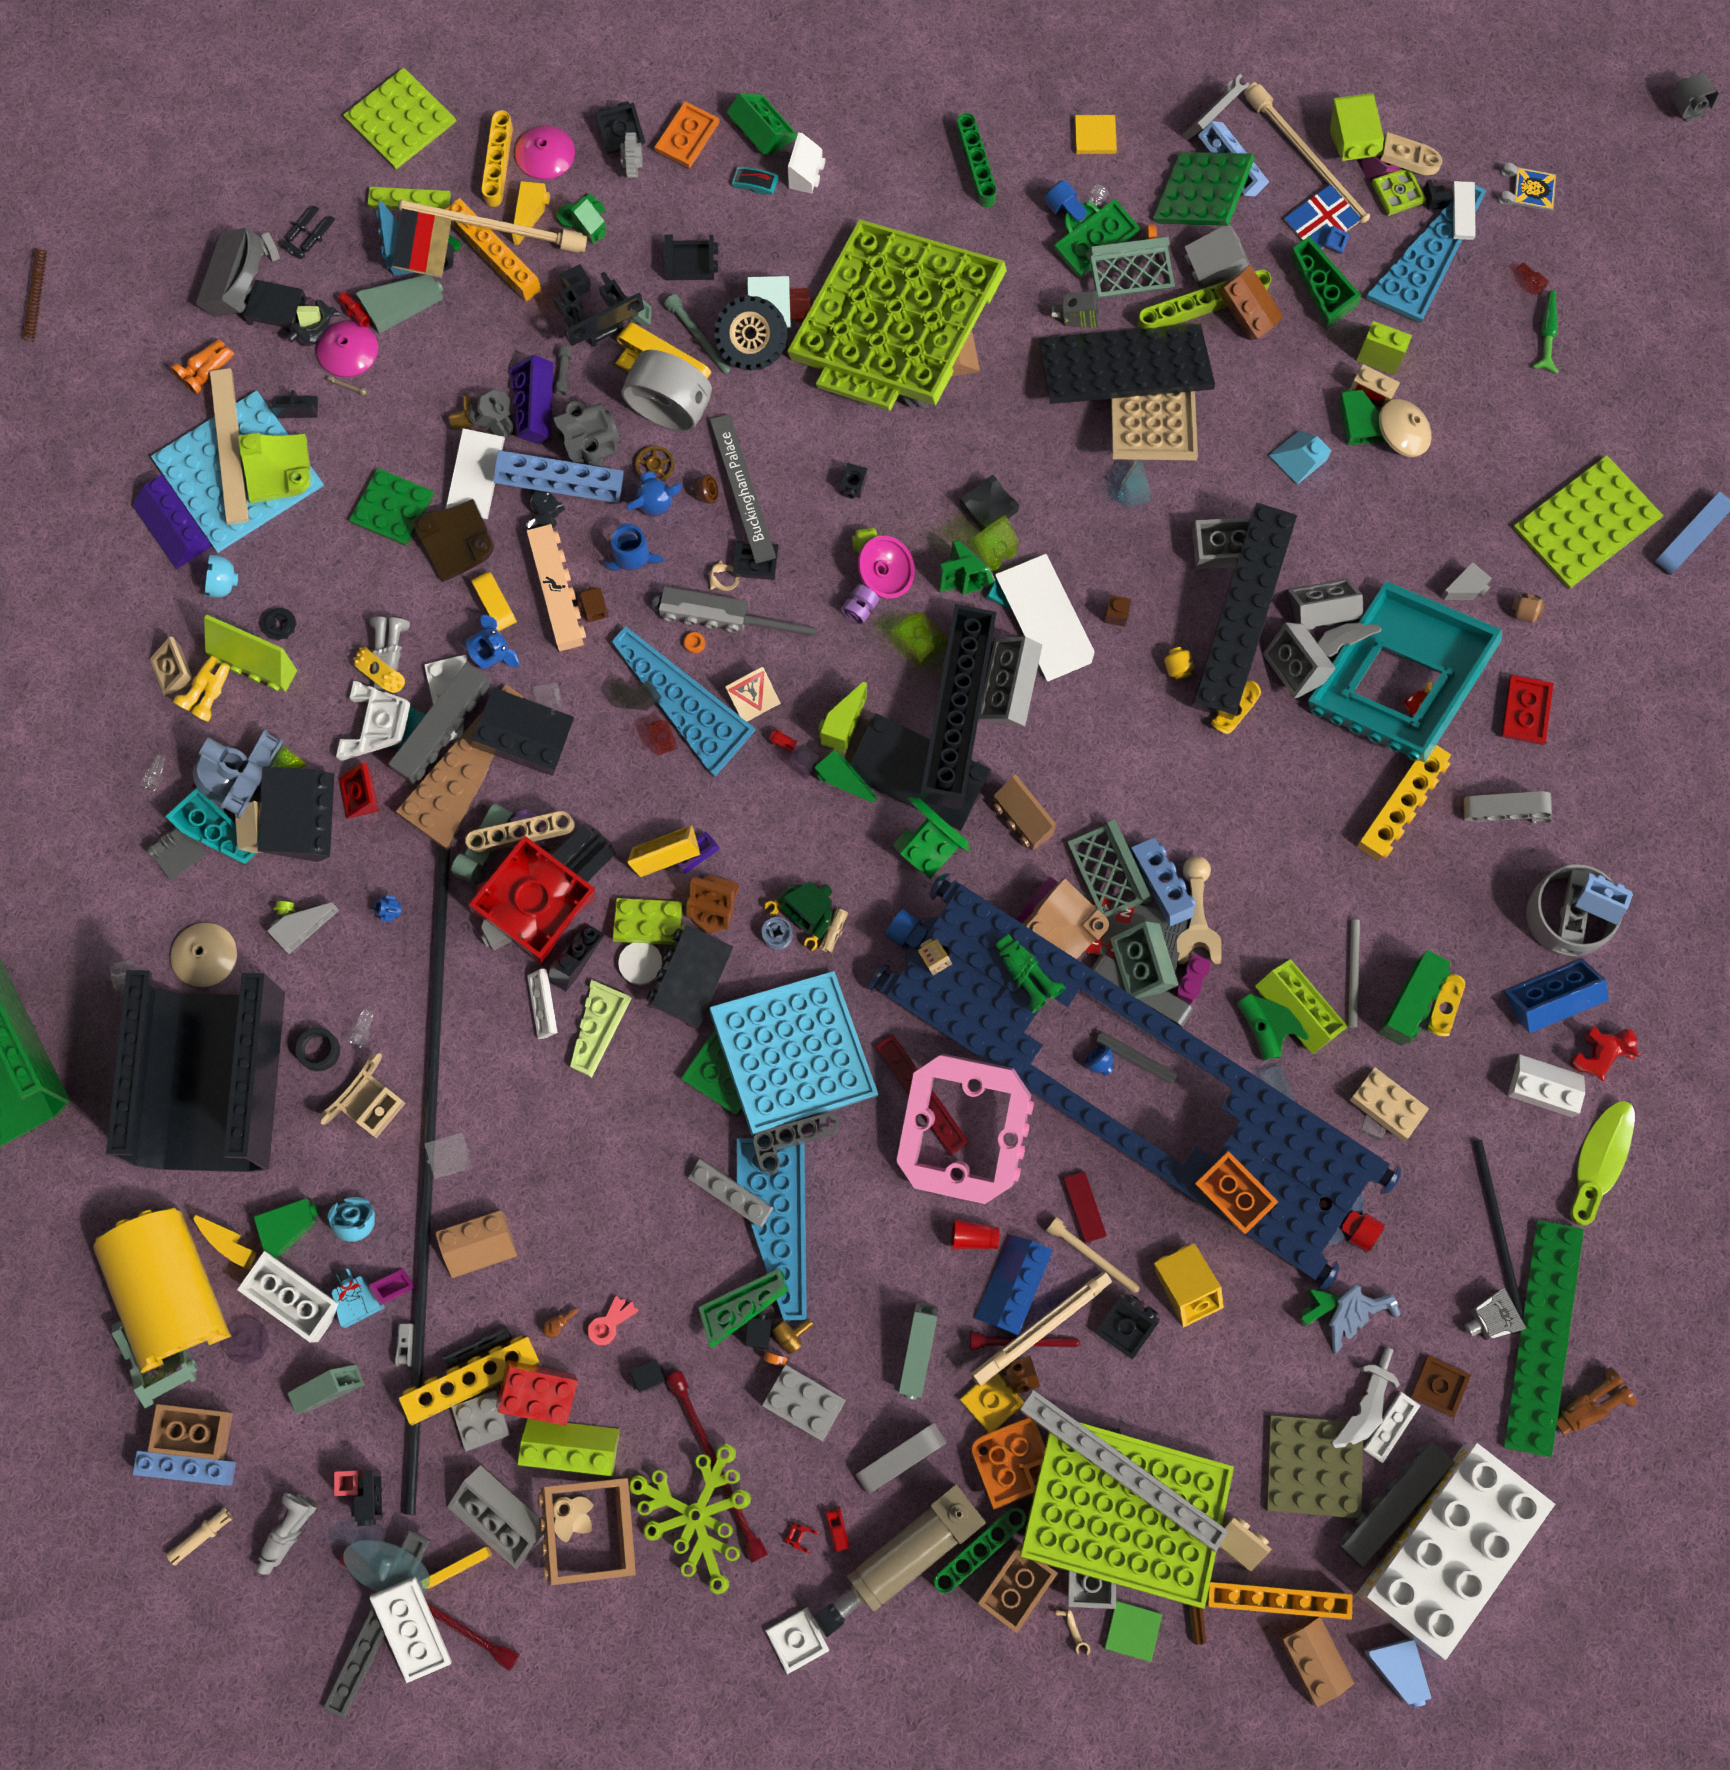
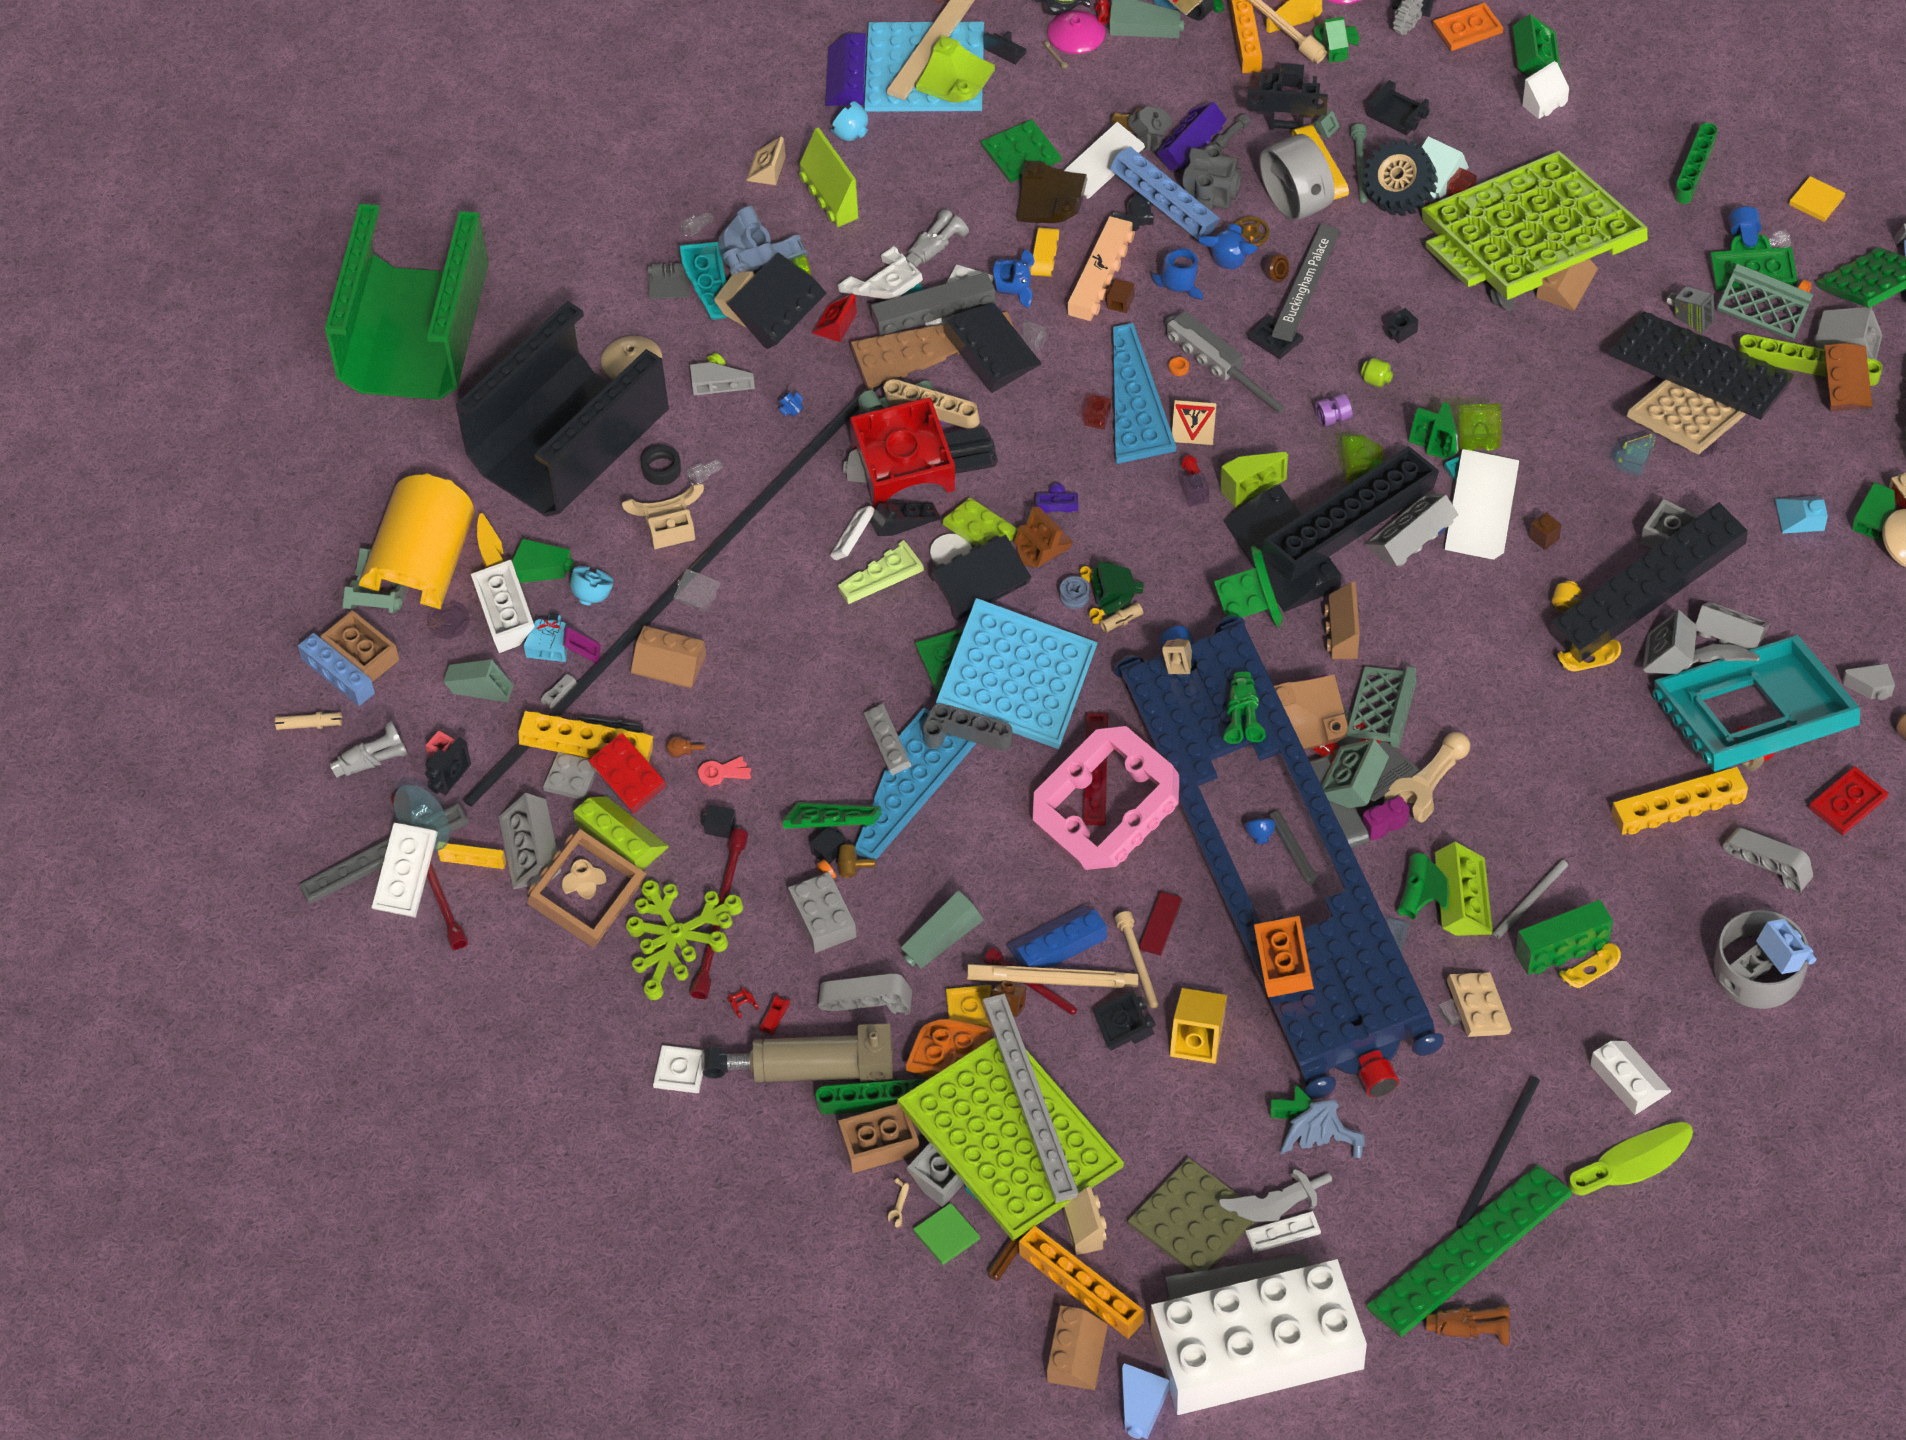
camera: 40 degrees right, 20 degrees down
(204, 681) = (785, 184): yellow piece -> none
(269, 622) = (863, 176): black gear -> none
(385, 677) = (919, 254): yellow piece -> none
(640, 699) = (1091, 370): clear smoke tile -> none
(664, 851) = (1031, 484): yellow slope -> none
(714, 583) = (1230, 334): tan piece -> none
(758, 180) = (1498, 84): slope -> none
(839, 773) = (1217, 510): green slope -> none
(893, 561) = (1383, 387): dark pink dish -> none
(973, 1236) = (1052, 883): red plant -> none
(988, 503) = (1507, 394): black brick -> none
(1173, 910) = (1418, 733): medium blue brick -> none
(1440, 1386) = (1350, 1230): reddish brown tile -> none
(1495, 1317) = (1438, 1207): light grey torso -> none
(1557, 995) = (1695, 1017): blue slope -> none
(1605, 1050) = (1703, 1079): red animal -> none

